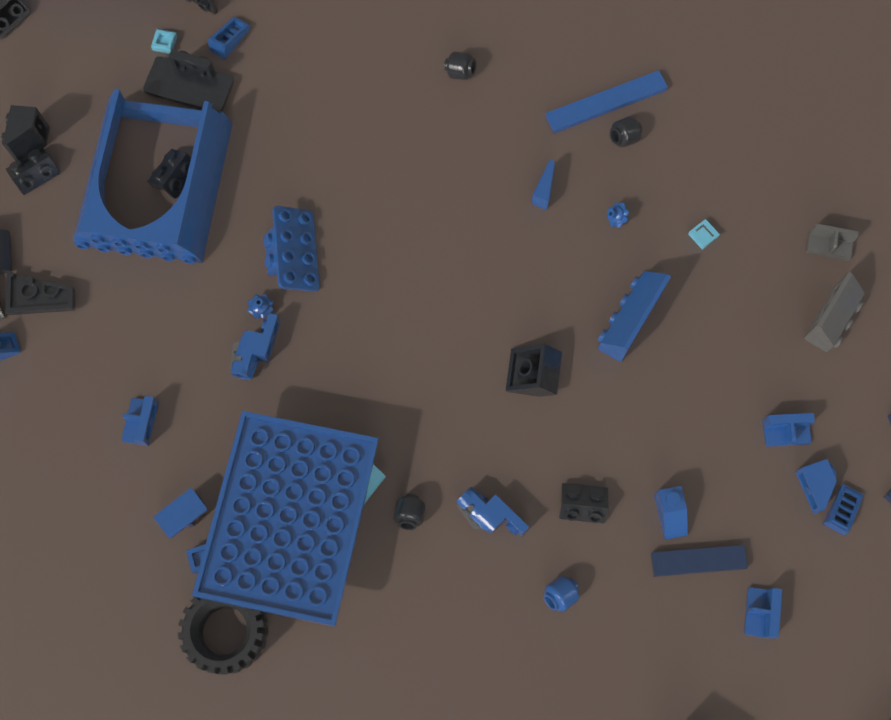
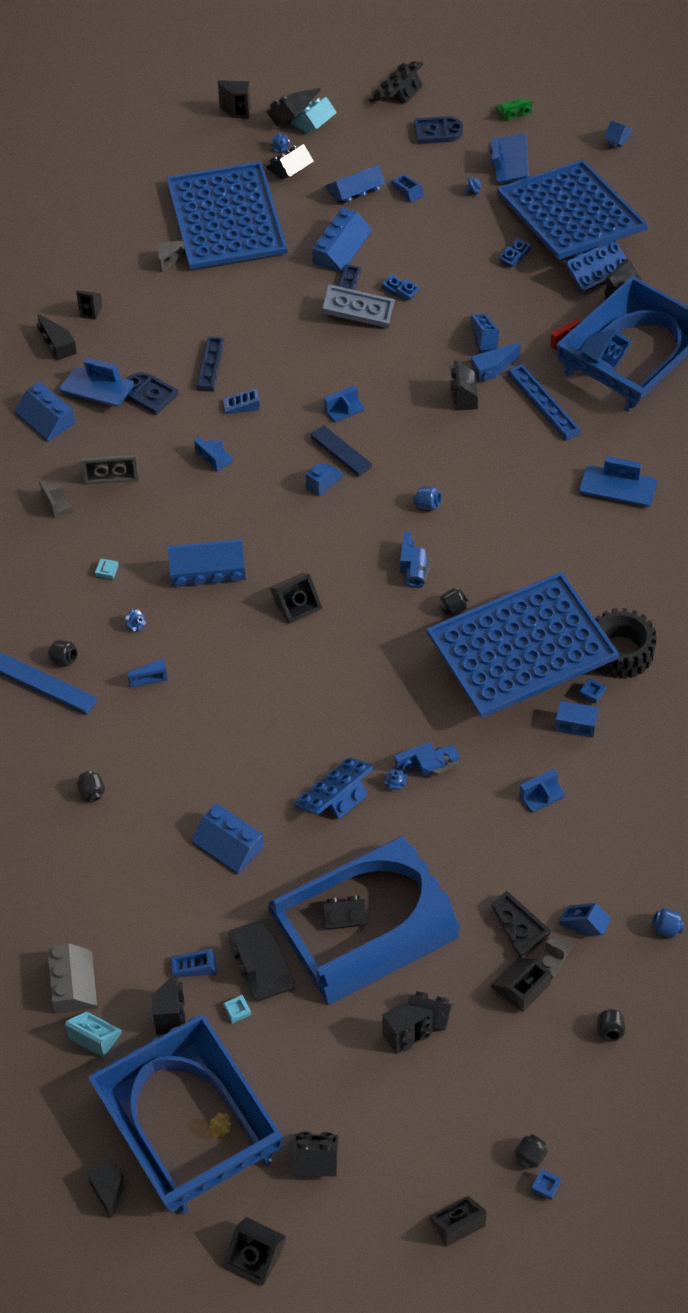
camera: 125 degrees left, 20 degrees down
(318, 135) = (227, 838): none -> blue slope
(584, 503) = (358, 521): black bracket -> none
(817, 483) = (237, 419): blue slope -> none

